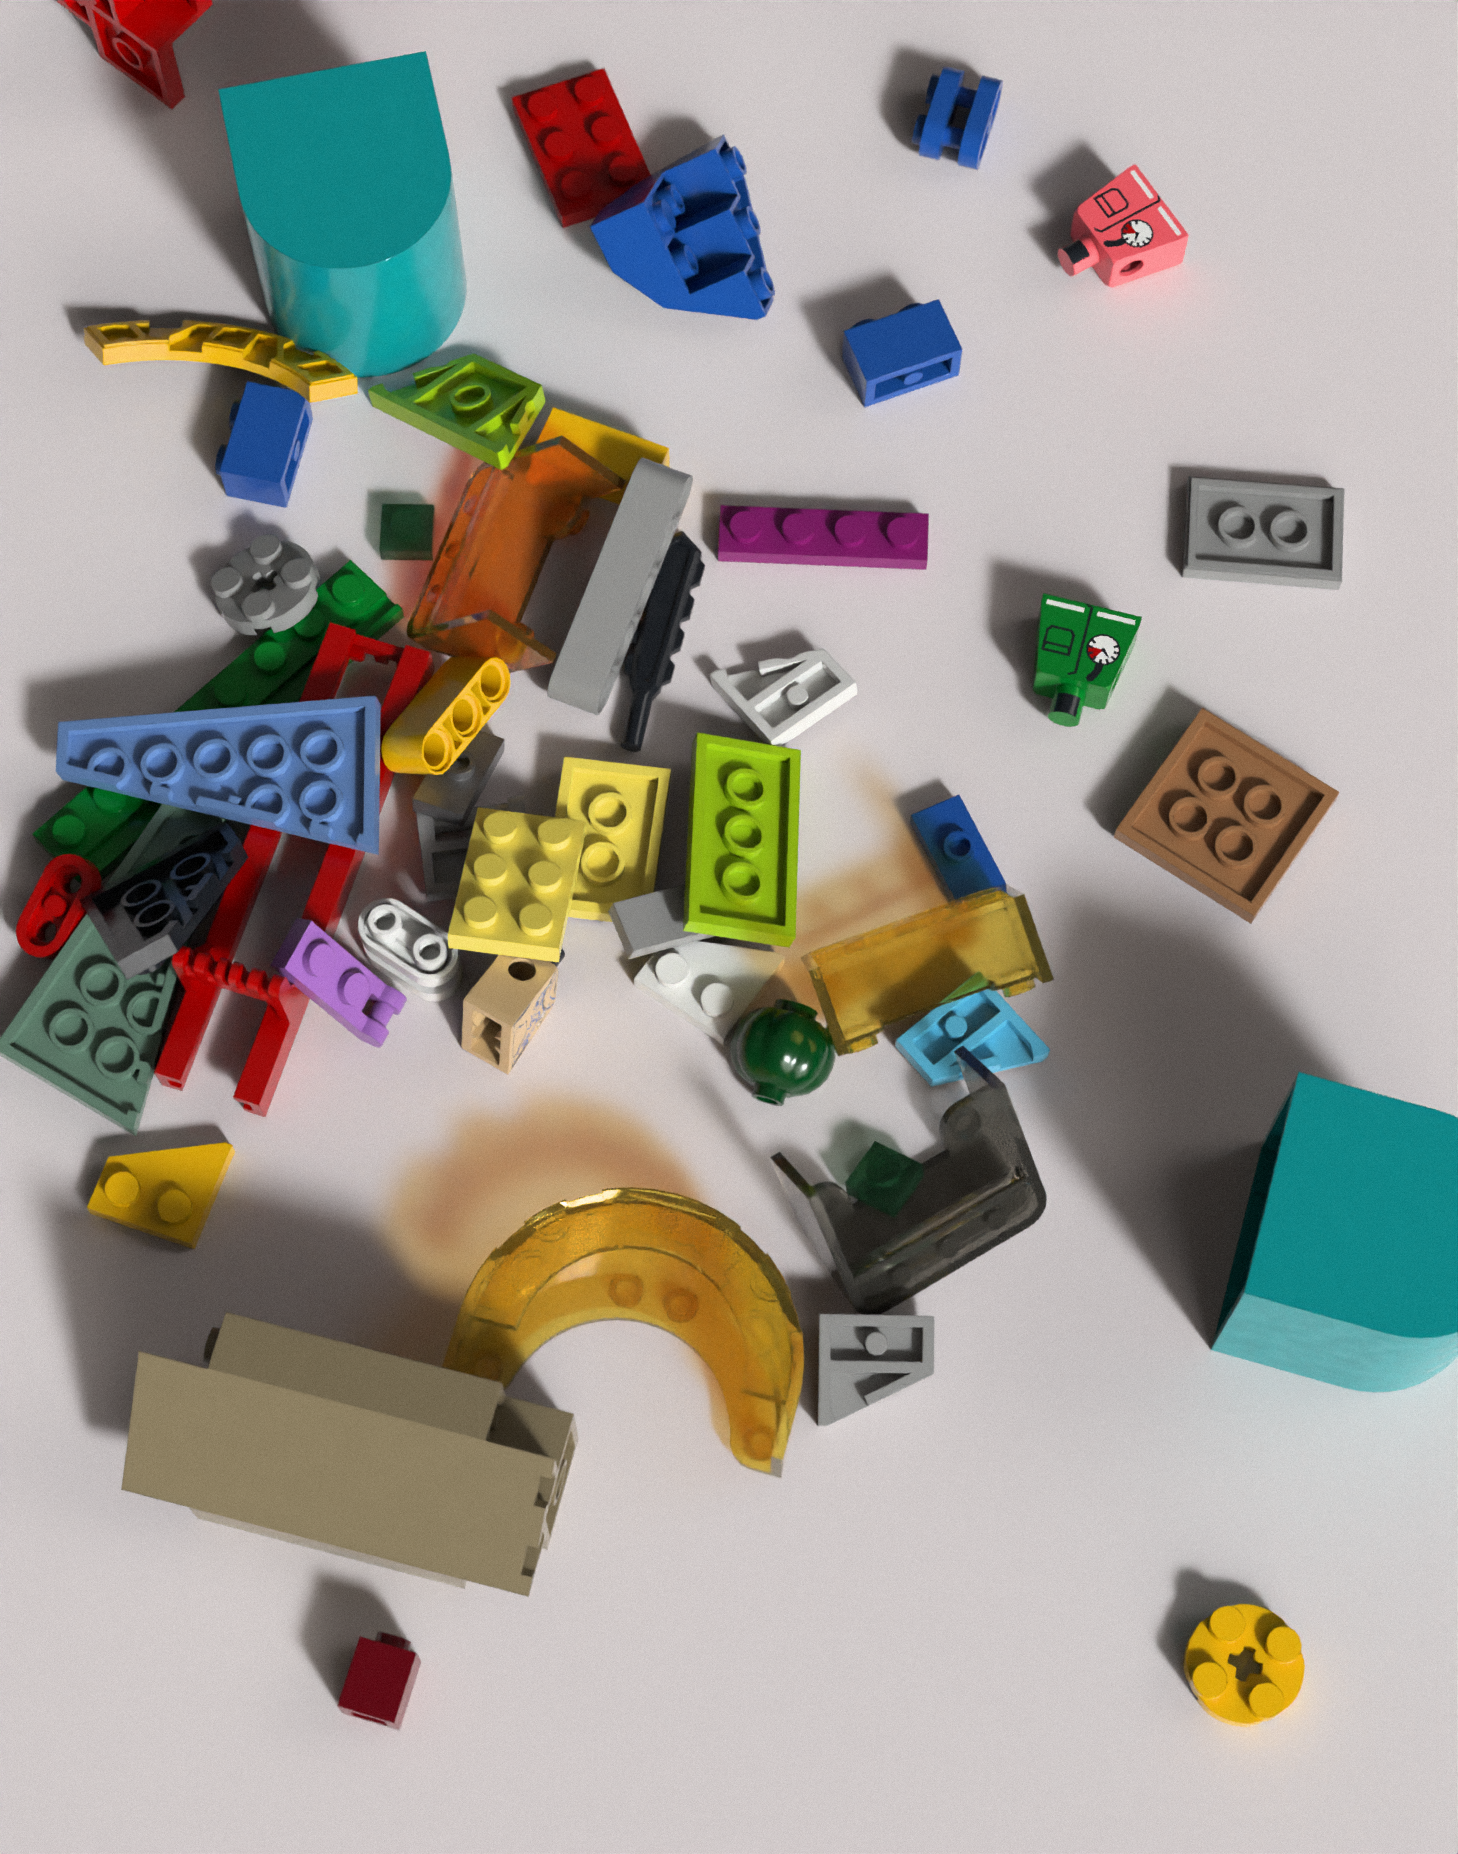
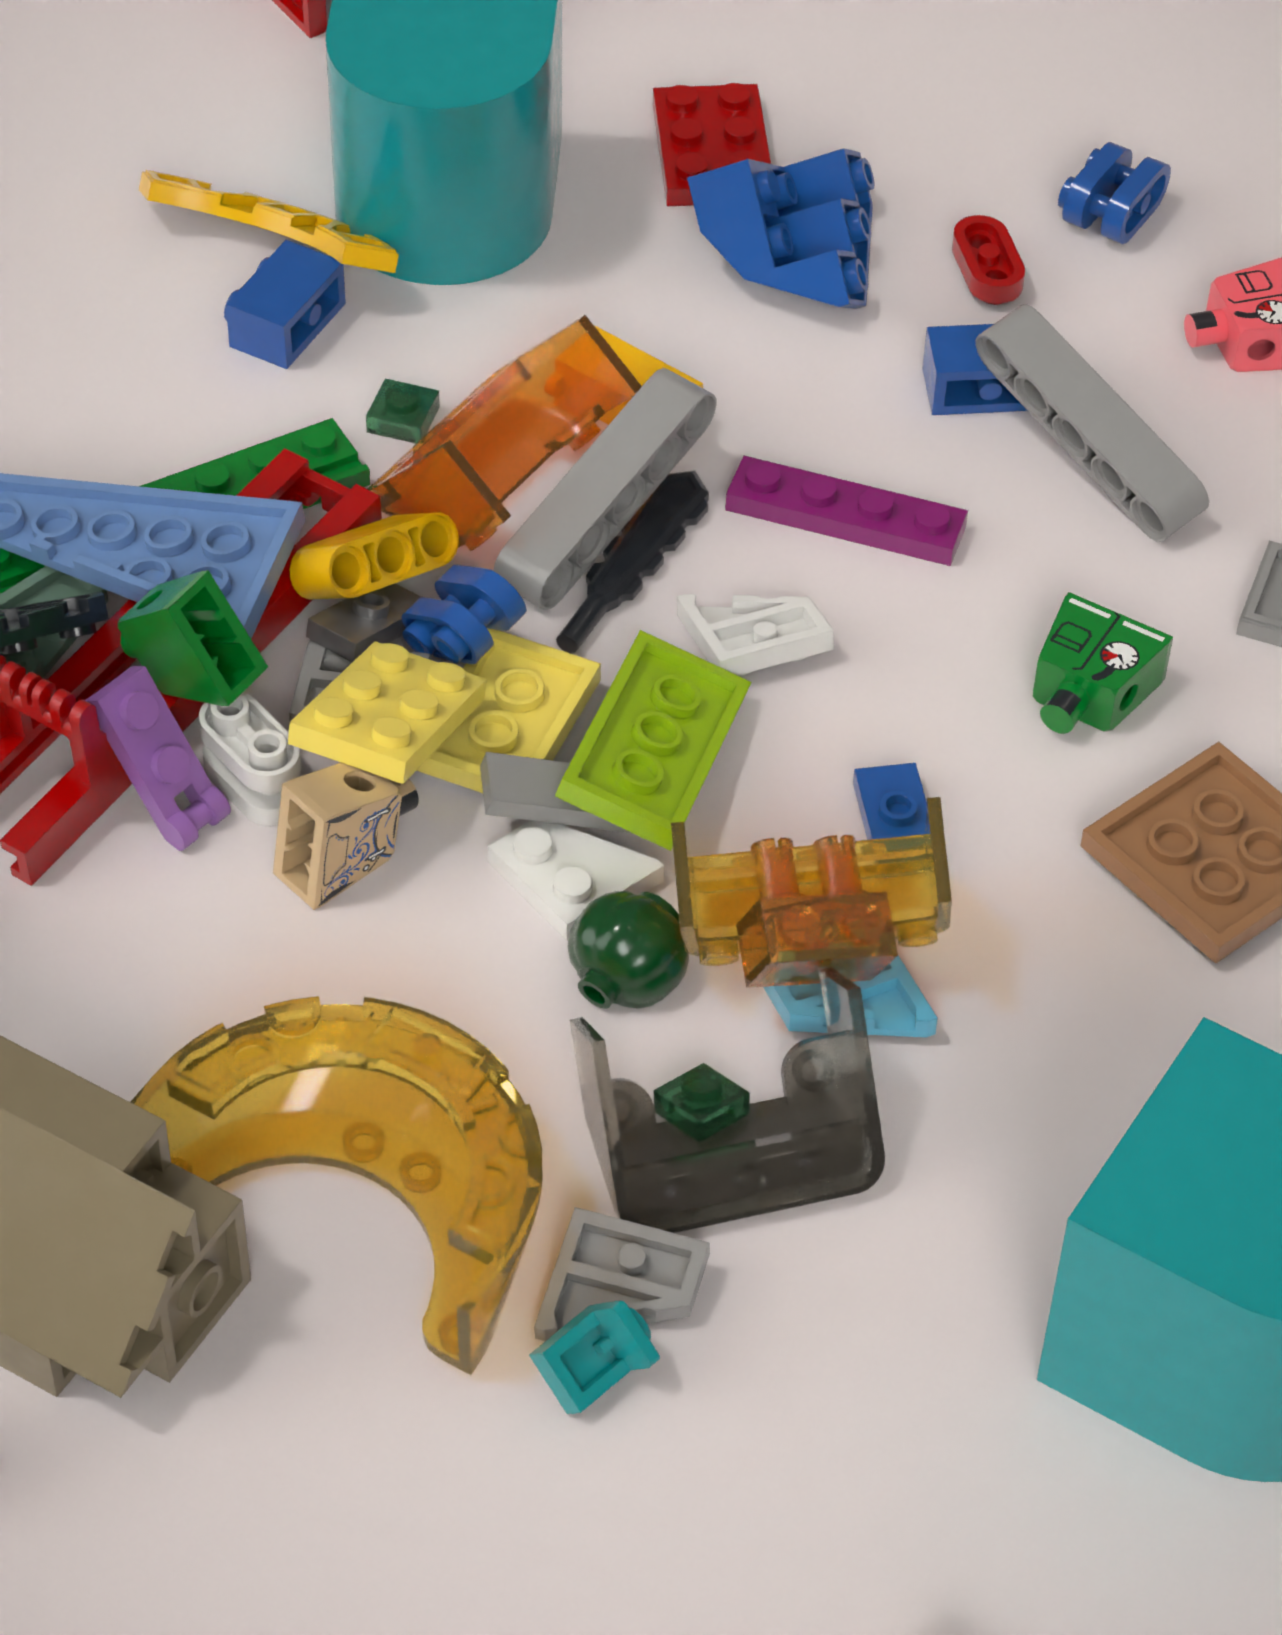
camera: 15 degrees right, 20 degrees down
(262, 563) = (234, 416): light grey plate -> none
(316, 871) = (191, 641): none -> green torso
(468, 406) = (503, 311): lime wing -> none
(544, 783) = (459, 621): none -> blue brick
(871, 227) = (988, 259): none -> red plate
(873, 1438) = (594, 1353): none -> teal bracket
(939, 1023) = (796, 934): none -> clear orange brick
(1013, 401) = (1092, 423): none -> light grey beam

